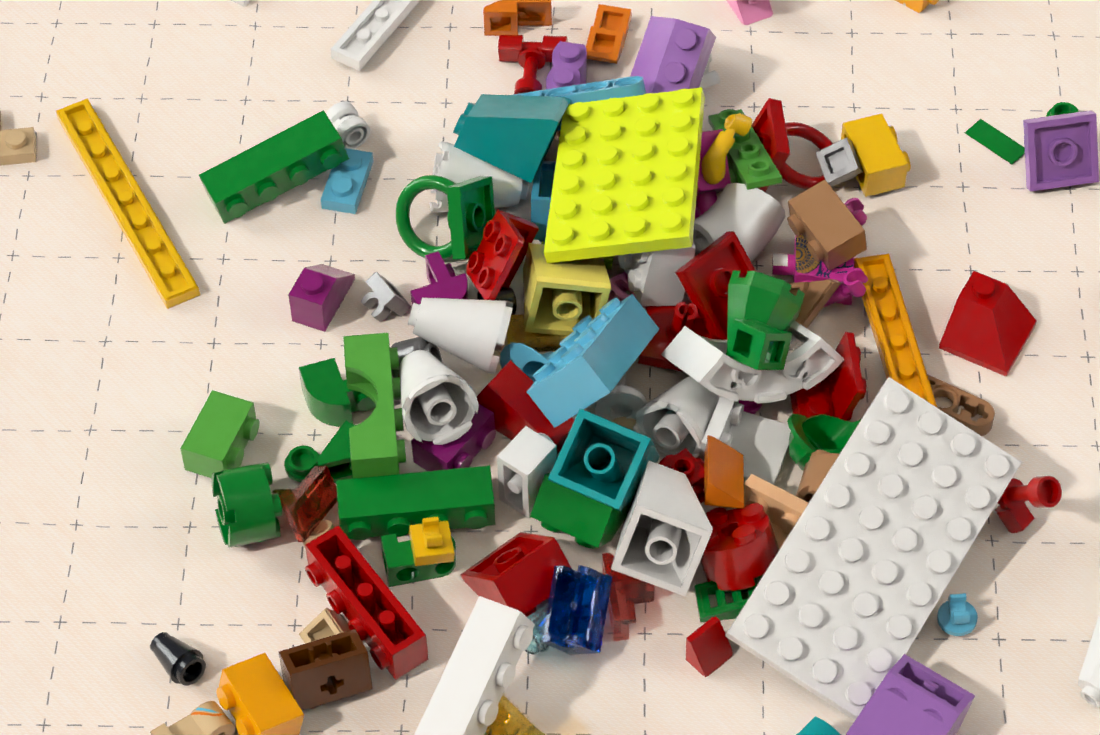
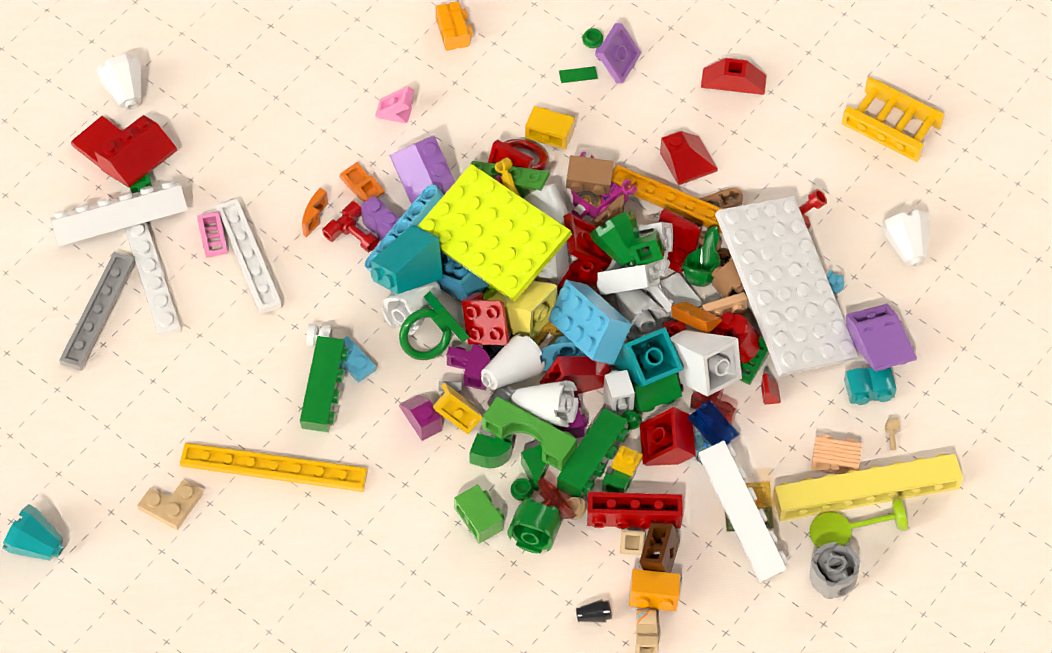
camera: 55 degrees left, 5 degrees up
(353, 309) = (457, 409): none -> yellow panel
(512, 515) = (633, 419): none -> green plate
(839, 162) = (545, 144): tile -> none

